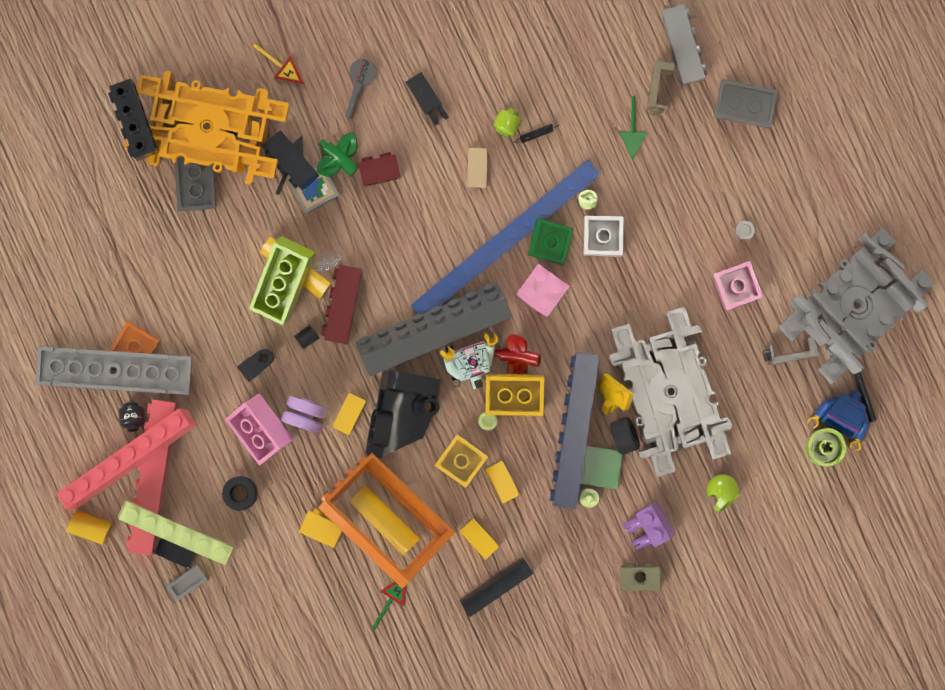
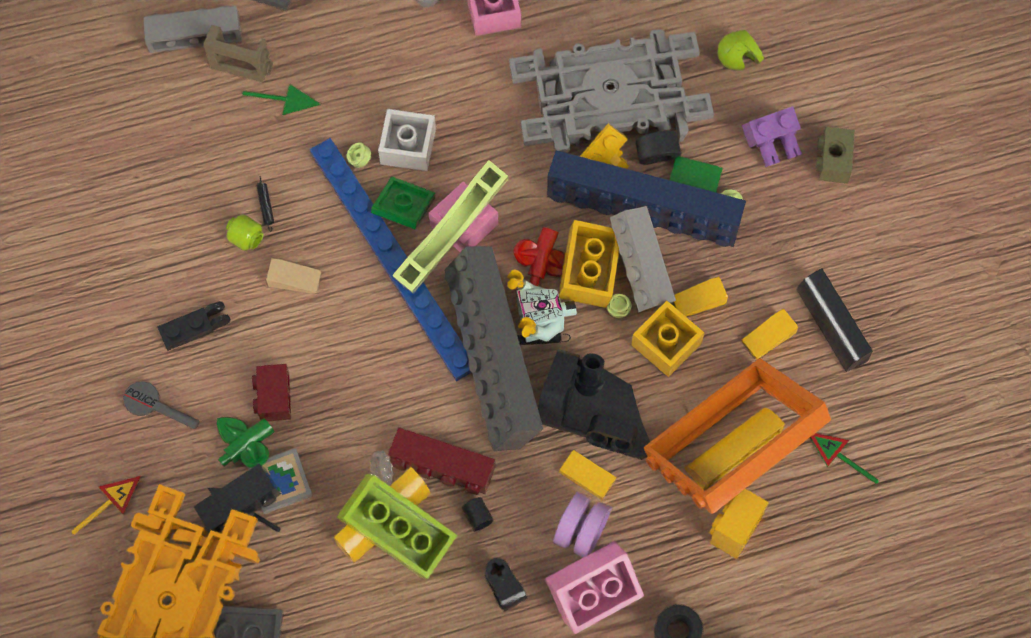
camera: 85 degrees left, 20 degrees down
(521, 434) = (642, 258): none -> light grey brick
(534, 290) = (451, 227): none -> yellowish green arch

